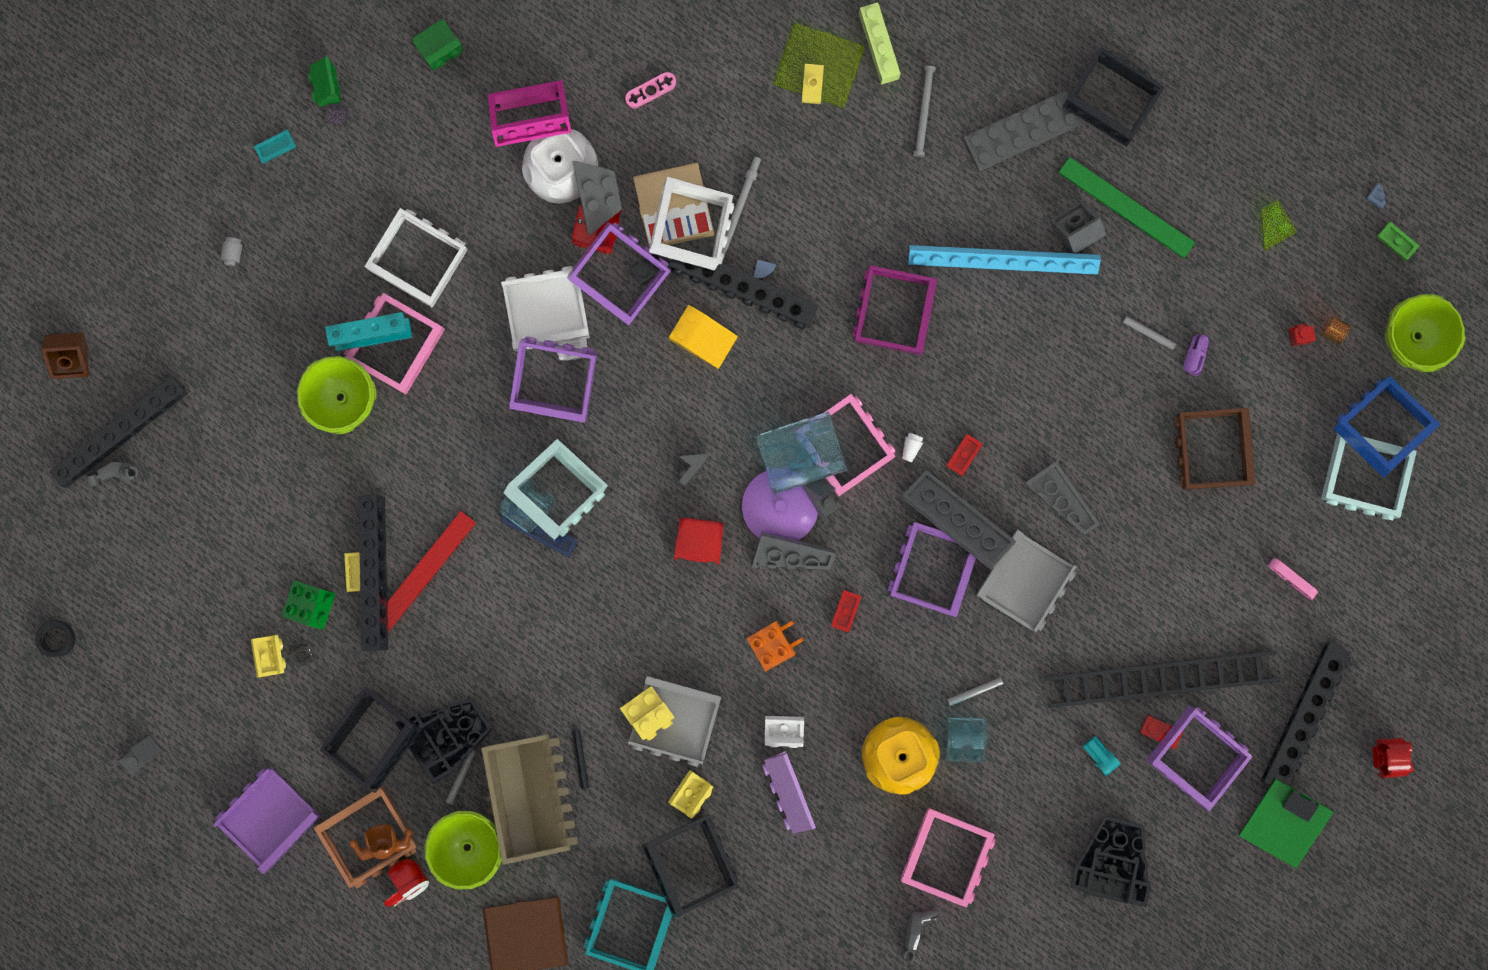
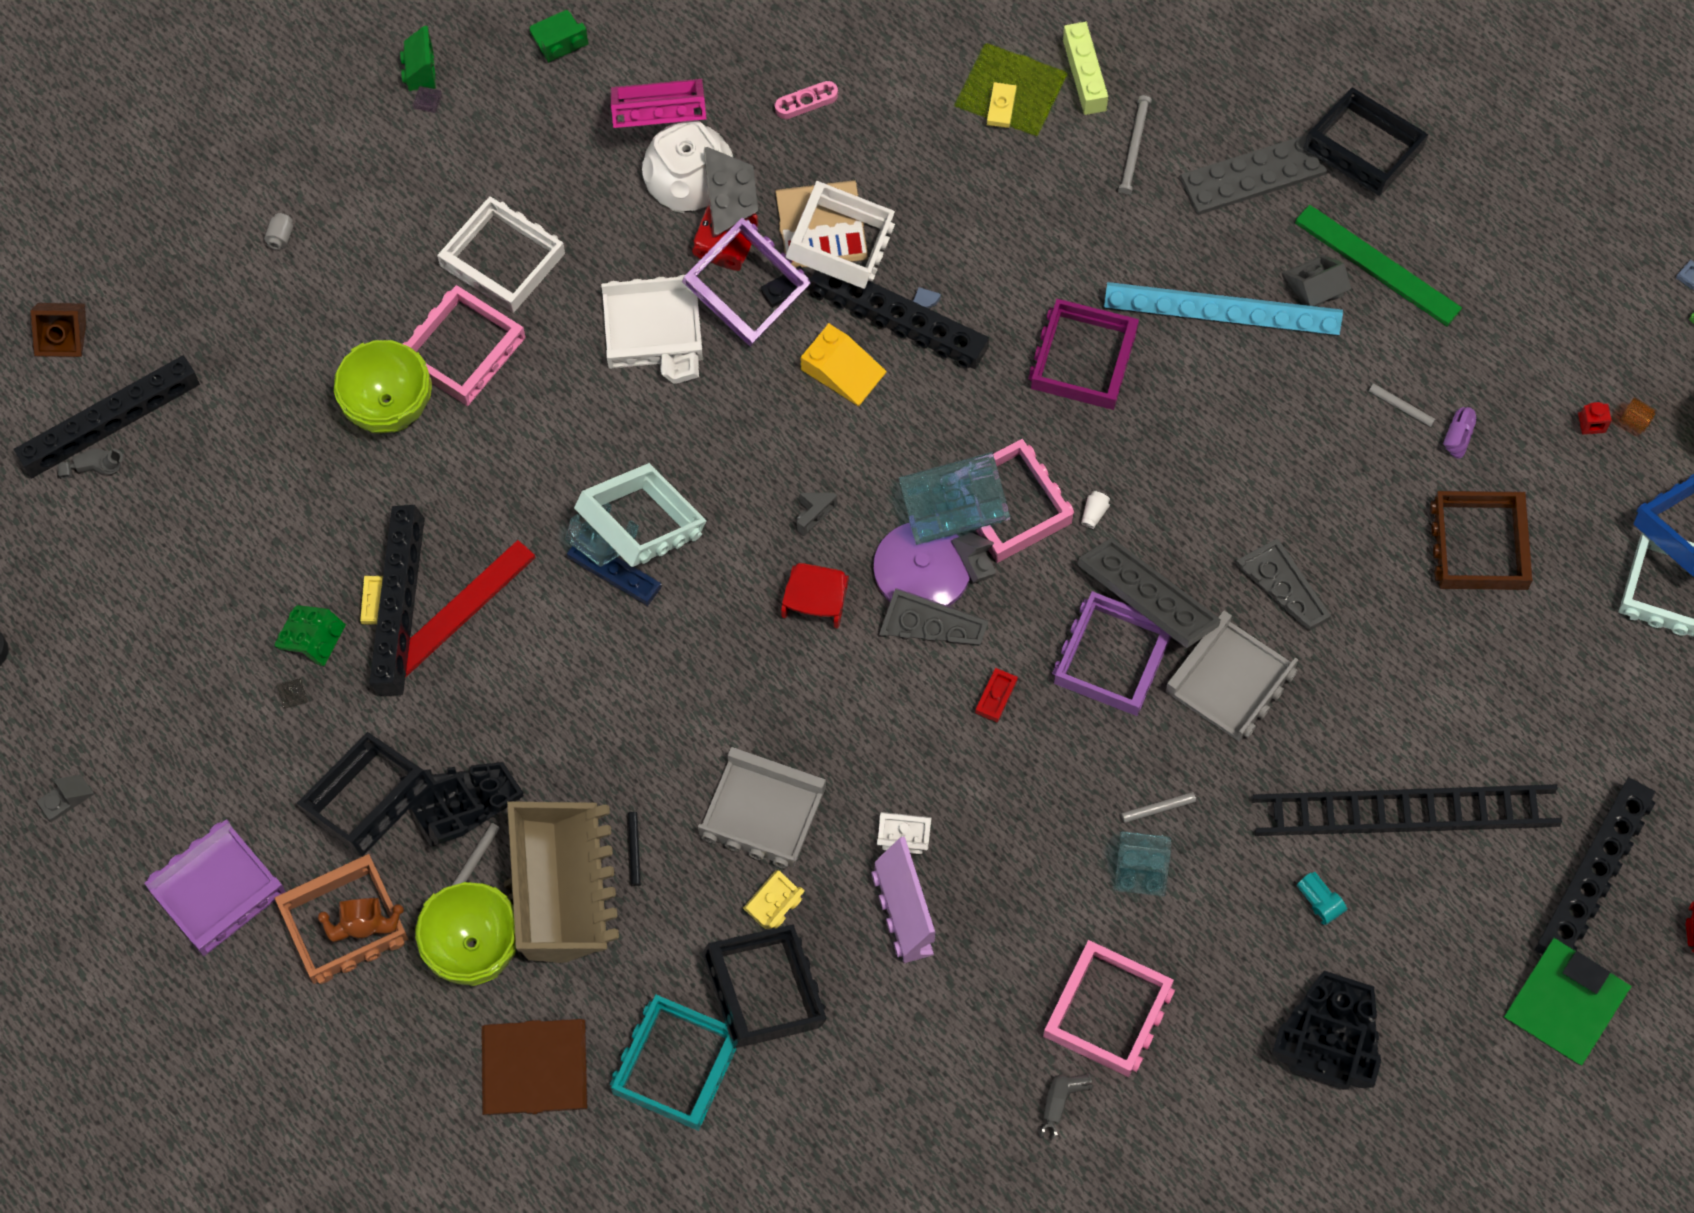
camera: 10 degrees right, 20 degrees down
(268, 656) = (248, 689): light yellow bracket -> none
(275, 146) = (349, 127): teal tile -> none
(369, 332) = (436, 327): teal fence -> none
(408, 879) = (388, 976): red piece -> none
(544, 408) = (652, 353): medium lavender window -> none
(647, 714) = (727, 795): light yellow plate -> none
(750, 176) = (918, 198): light grey bar -> none
(771, 645) = (897, 726): orange plate -> none
(882, 754) = (1049, 892): yellow rock -> none
(964, 455) = (1160, 524): red plate -> none
(1157, 730) = (1402, 876): red plate -> none
(1227, 777) = (1425, 935): medium lavender window -> none
(1275, 225) = (1563, 297): clear neon green wing -> none
(1297, 582) = (1581, 700): bright pink beam -> none

